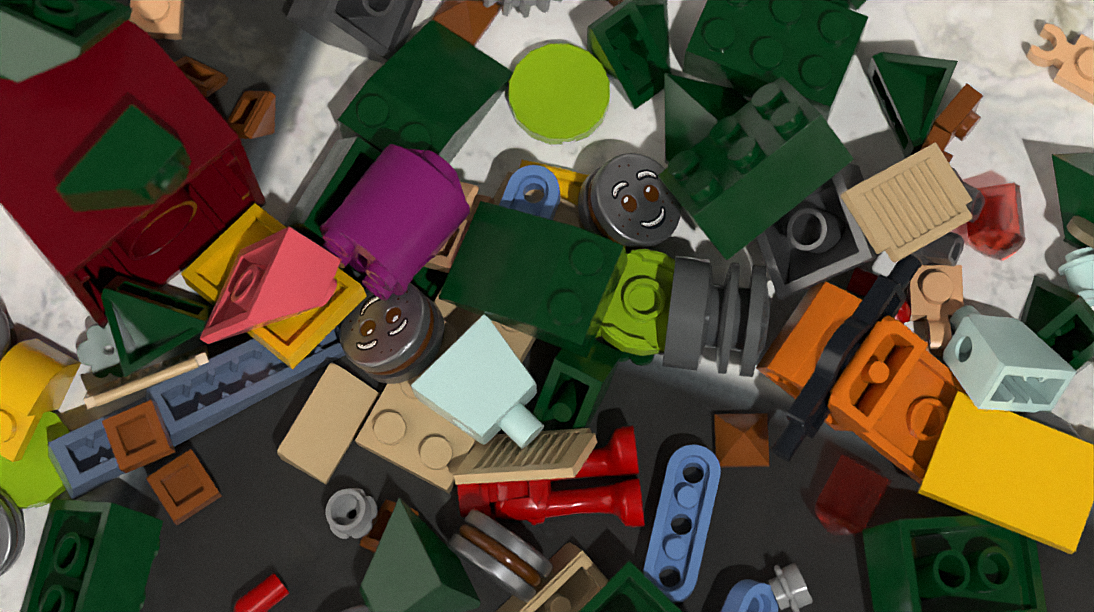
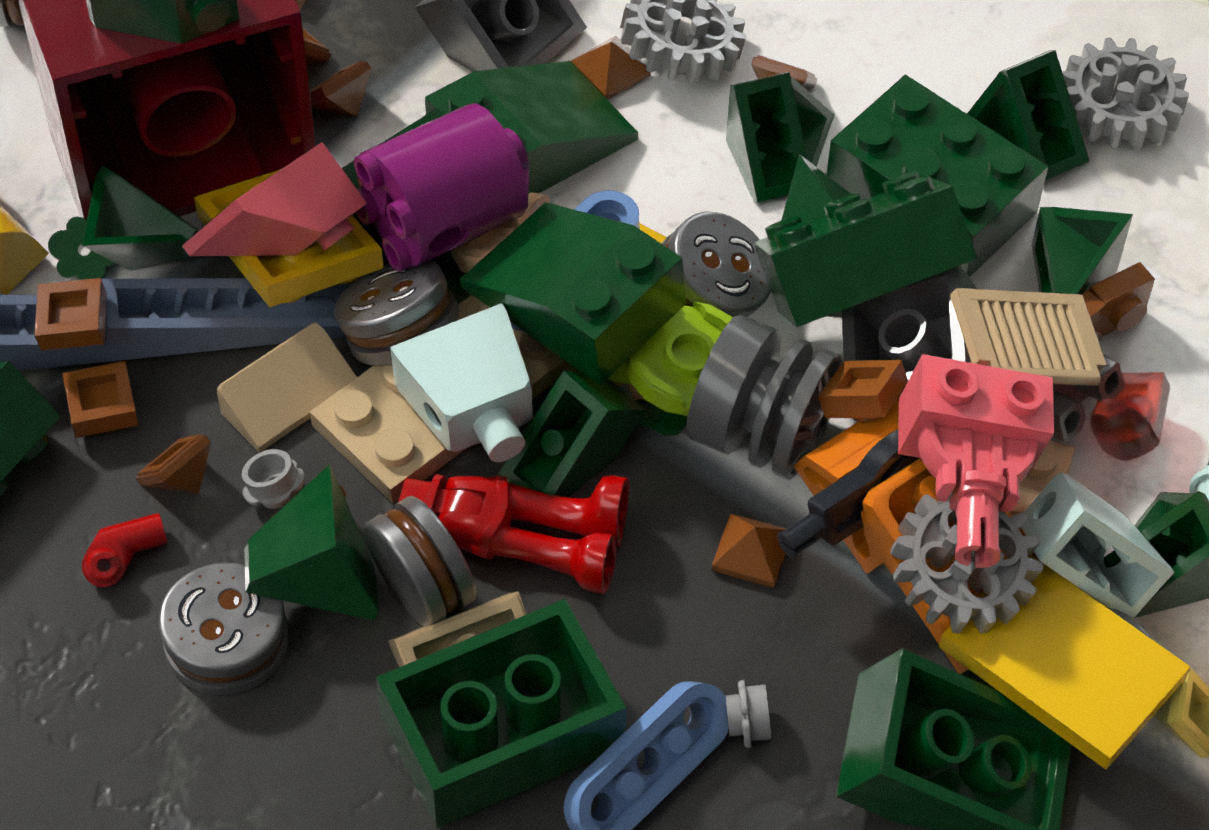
camera: 15 degrees right, 20 degrees down
(146, 377) = (107, 268): tan window -> none
(269, 524) = (179, 466): none -> dark orange slope
(548, 456) = (491, 470): tan window -> none
(559, 93) = (679, 163): lime tile -> none
(685, 501) = (653, 586): medium blue plate -> none
(796, 298) = (863, 389): none -> dark orange plate
(850, 497) = (856, 638): clear red plate -> none
(908, 338) = (979, 440): none -> coral brick
(928, 396) = (947, 592): none -> light grey gear

